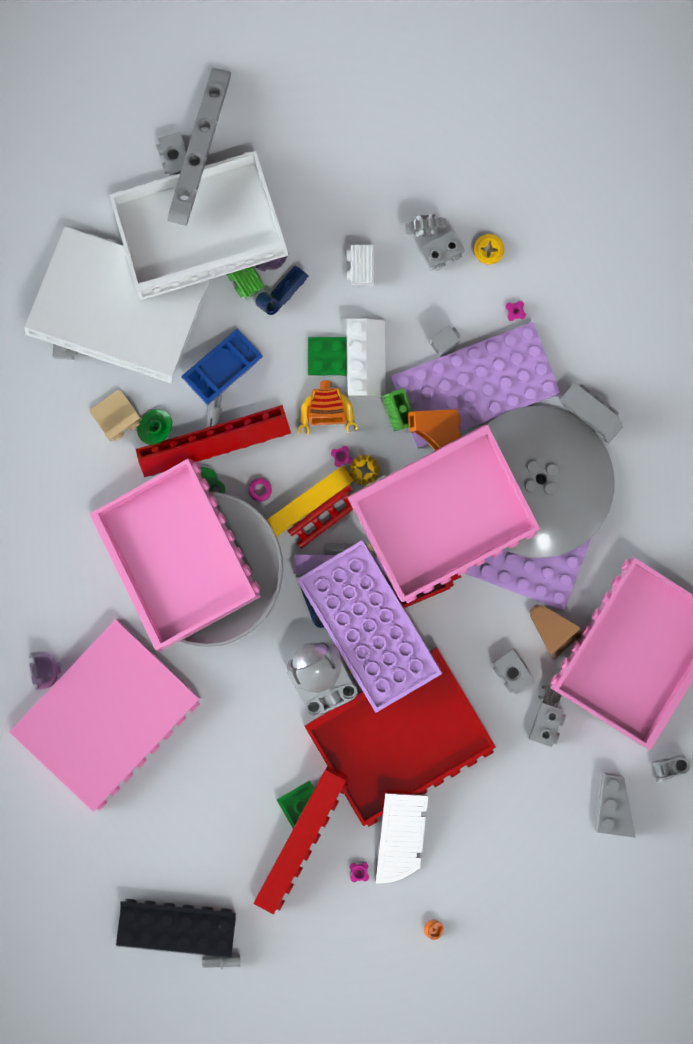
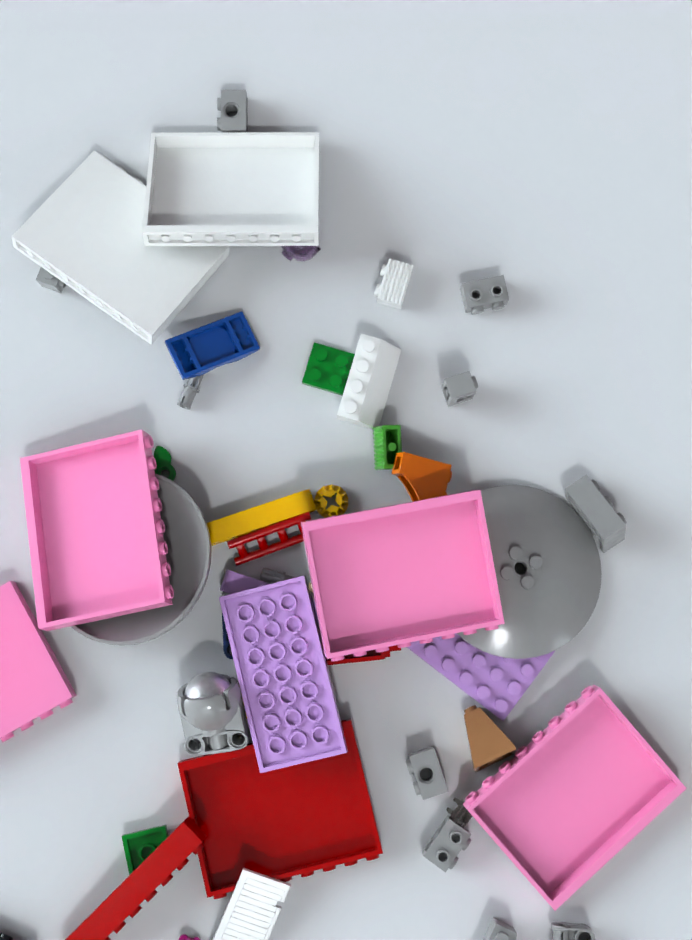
camera: 15 degrees right, 5 degrees down
(115, 416) = (84, 364): tan bracket -> none
(150, 423) = (121, 387): green dish -> none
(199, 146) = (259, 110): light grey beam -> none
(214, 440) = (178, 420): red brick -> none
(247, 282) = (268, 263): bright green brick -> none
(260, 498) = (203, 488): dark pink piece -> none
(282, 293) = (301, 288): dark blue plate -> none
(326, 407) = (310, 422): torso -> none
(342, 451) = (315, 474): dark pink plate -> none
(425, 225) = (474, 261): light grey gear -> none
(482, 379) = (488, 442): lavender plate -> none
(496, 244) = (530, 299): yellow gear -> none
(511, 314) = (539, 385): dark pink plate -> none

